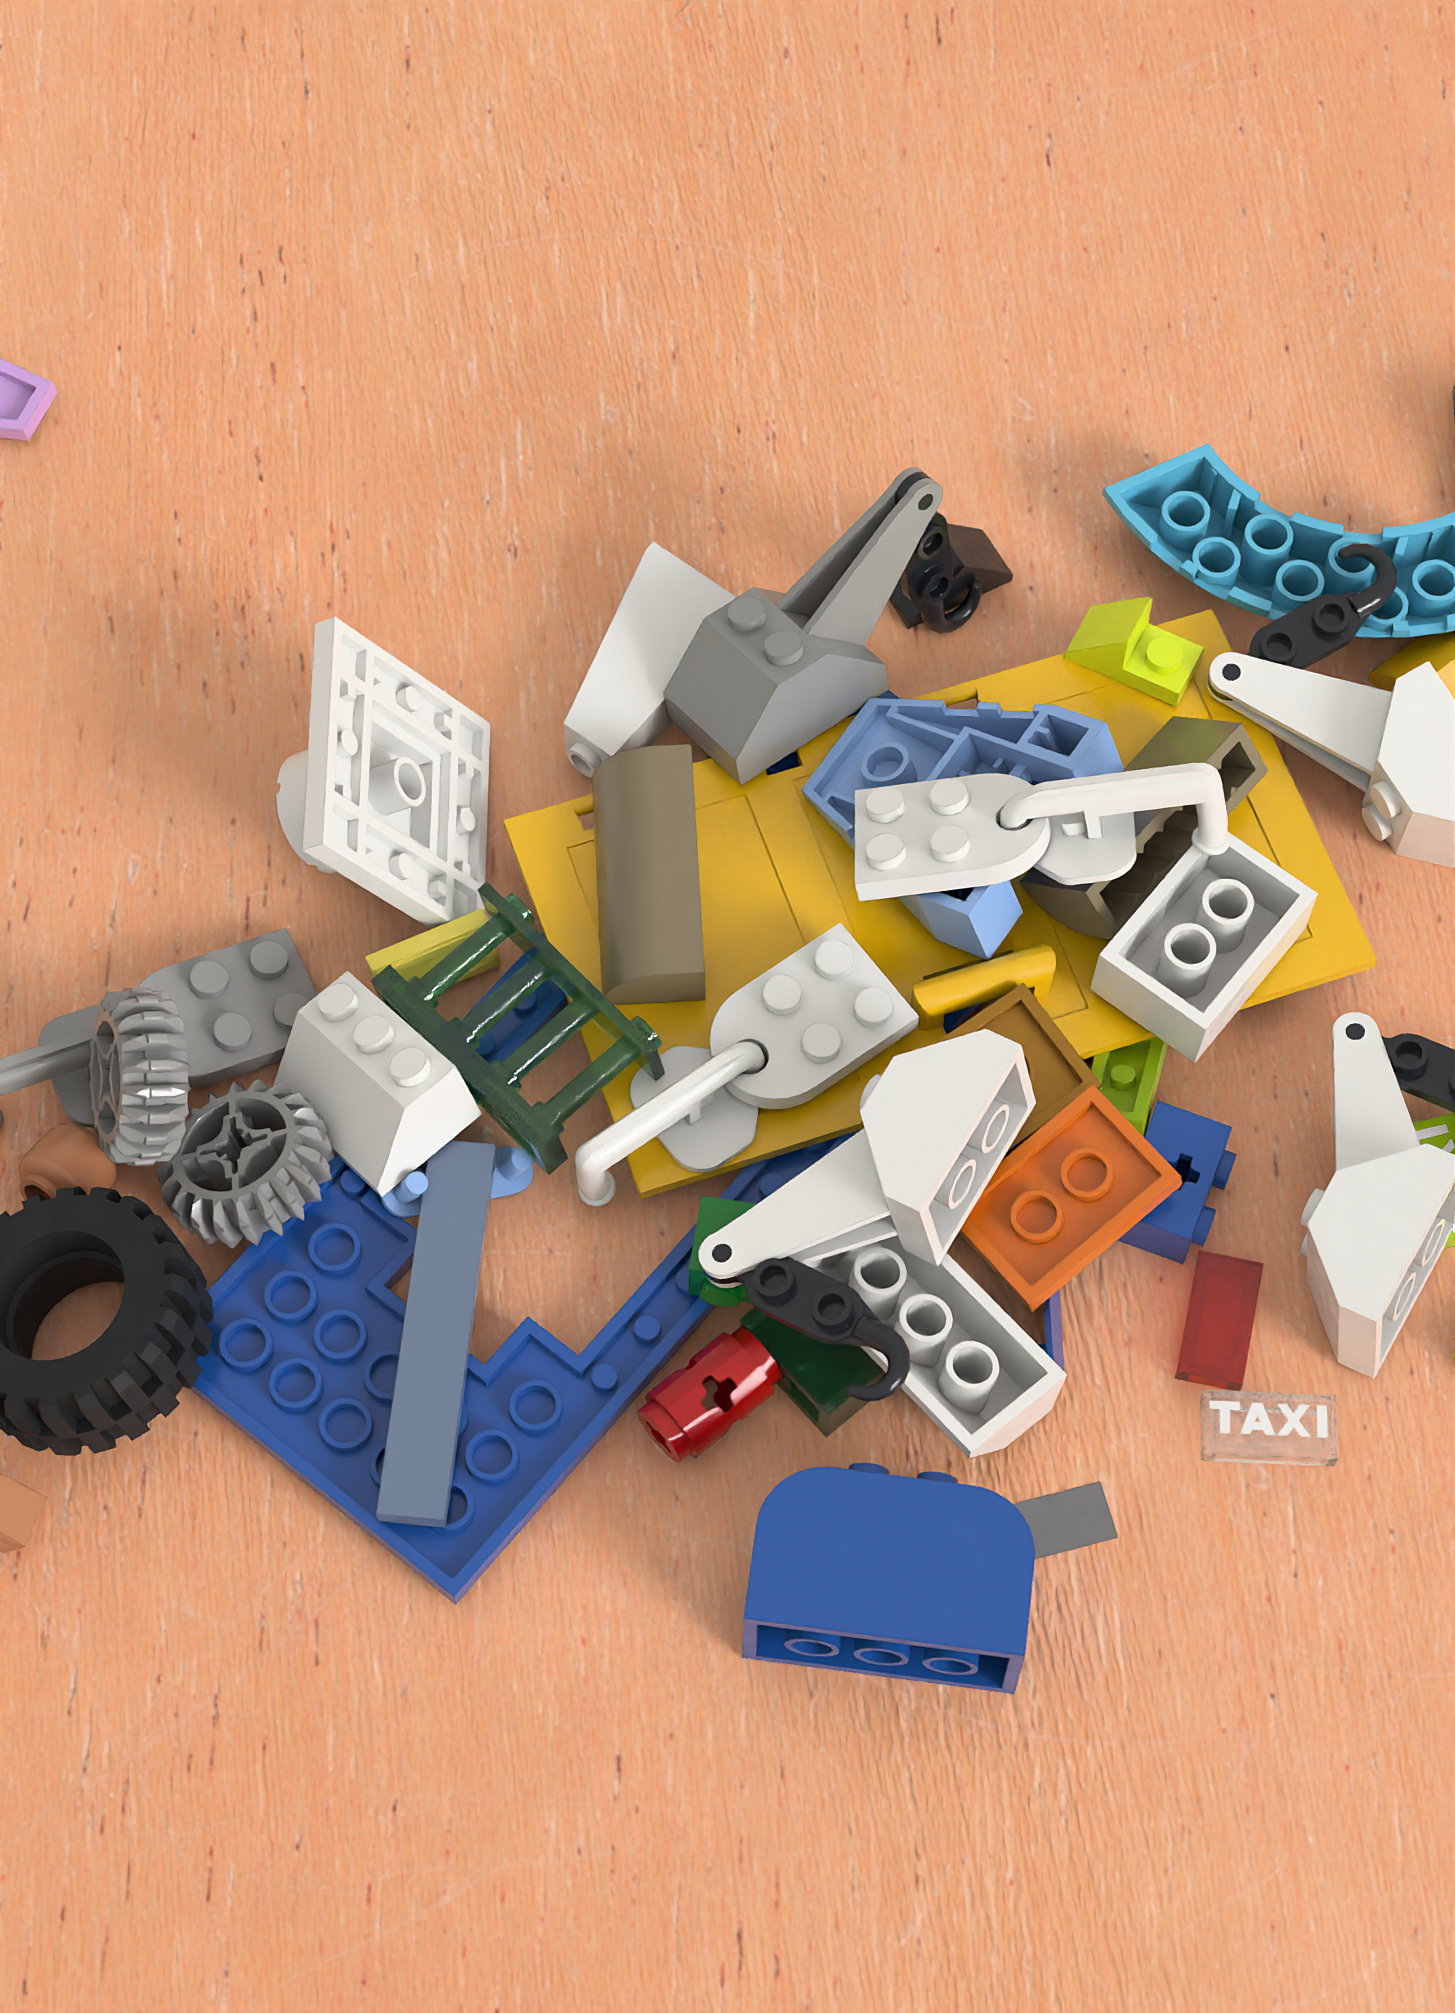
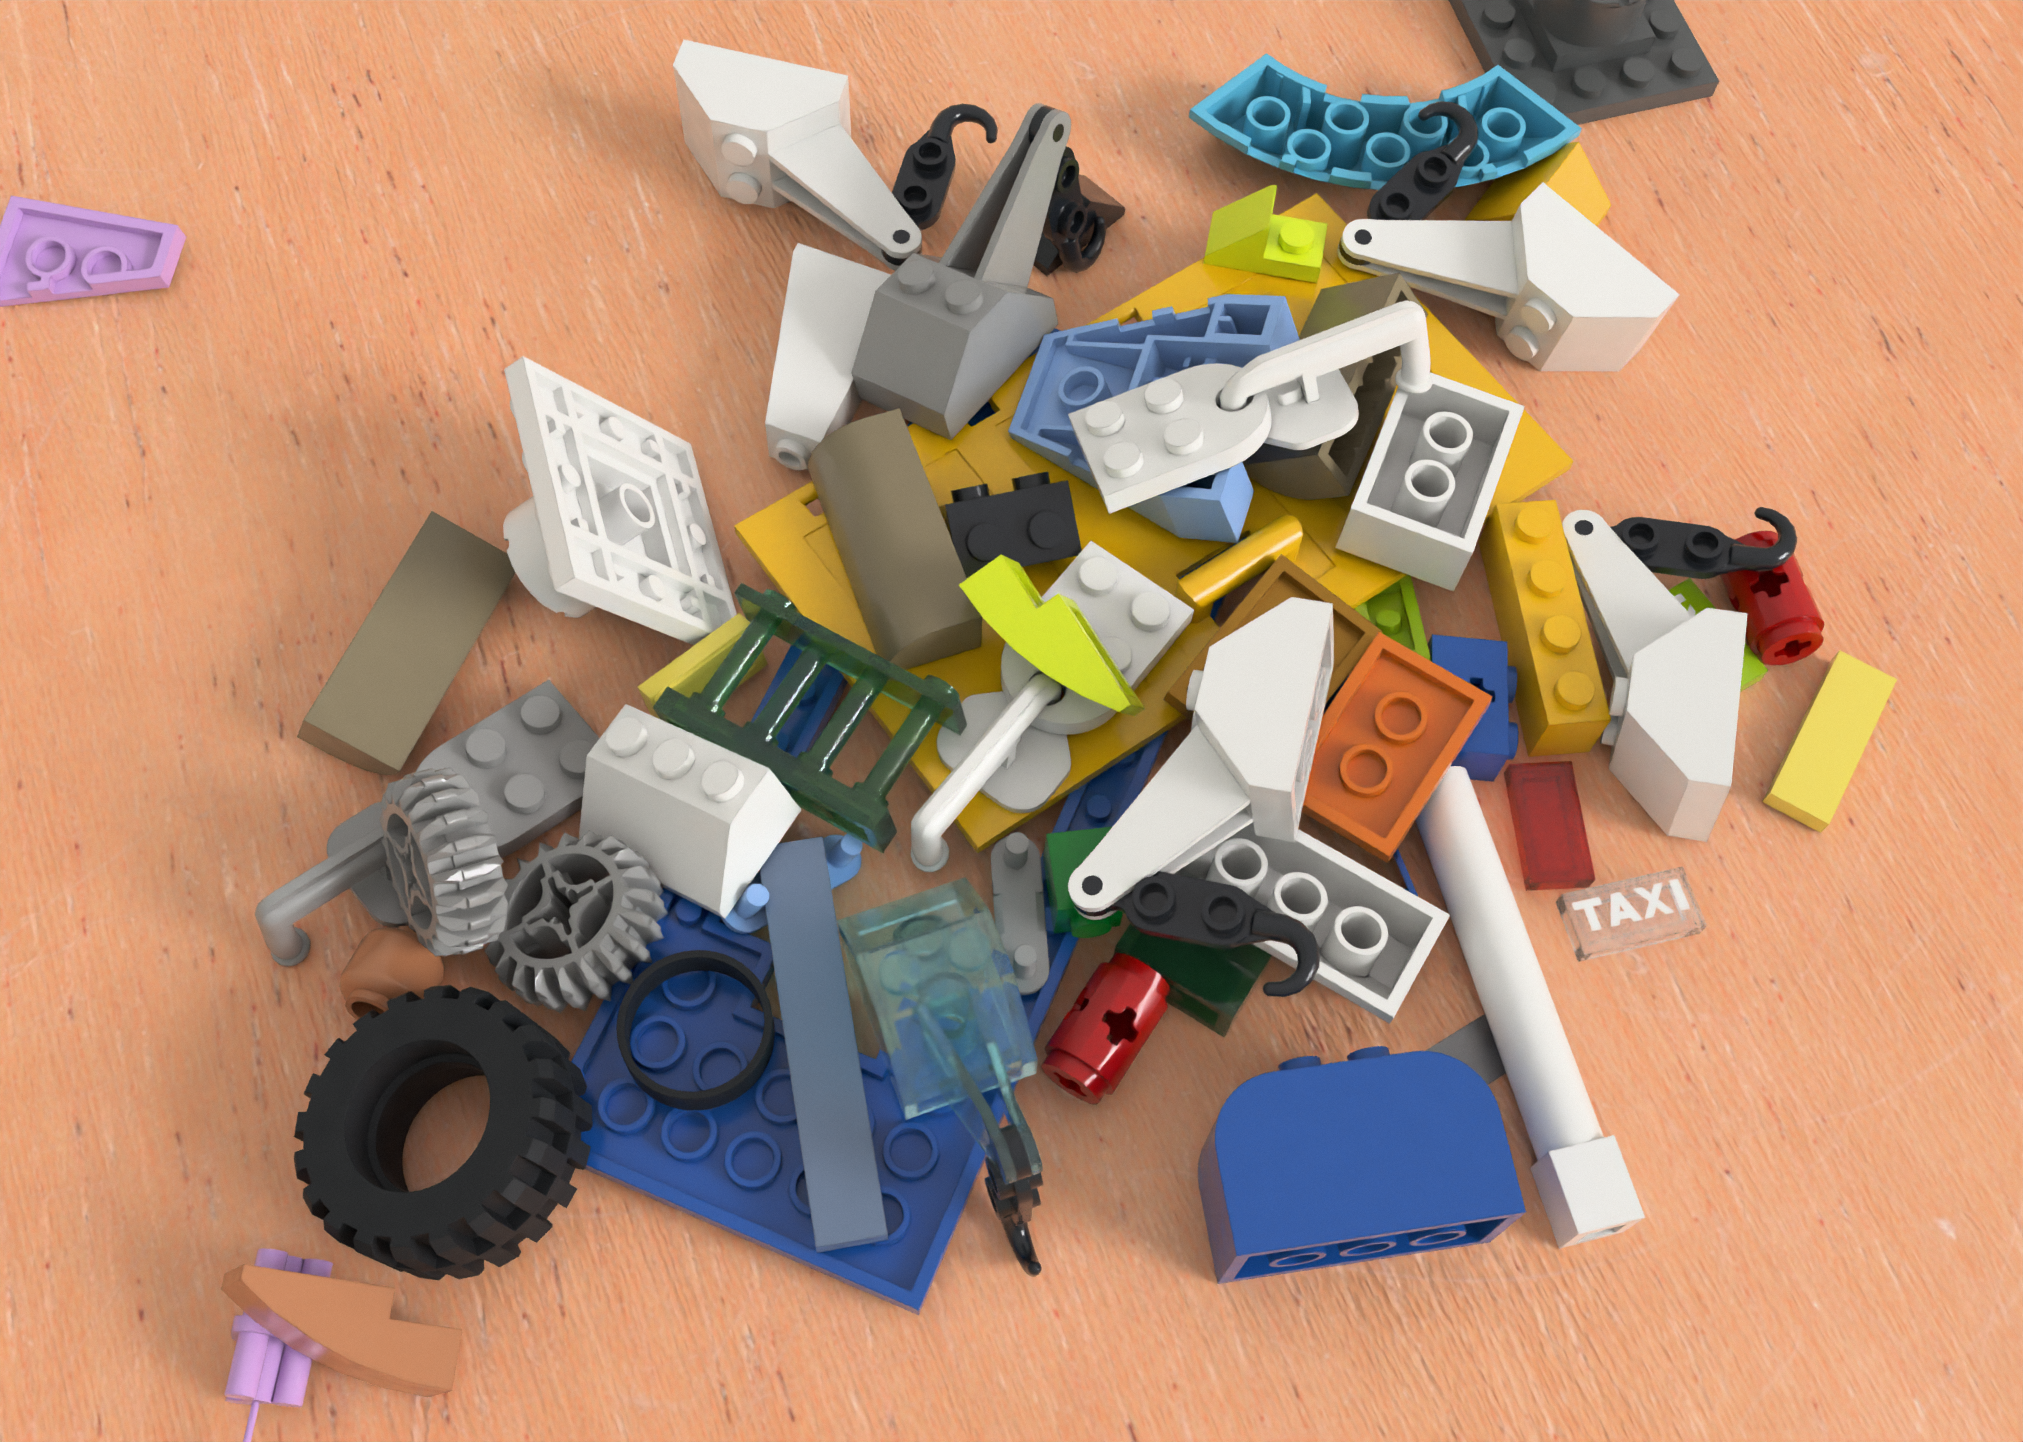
camera: 20 degrees left, 0 degrees up
(164, 864) = (408, 648): none -> dark tan brick
(312, 1230) = (672, 966): none -> black tyre
(556, 1353) = (952, 1030): none -> clear light blue slope
(661, 1266) = (1020, 909): none -> light grey piece
(684, 427) = (784, 136): none -> white slope
(761, 1007) = (1049, 634): none -> neon yellow slope
(768, 888) = (1025, 525): none -> black bracket
(1116, 1540) = (1577, 1167): none -> white brick
(1281, 1122) = (1544, 628): none -> yellow brick

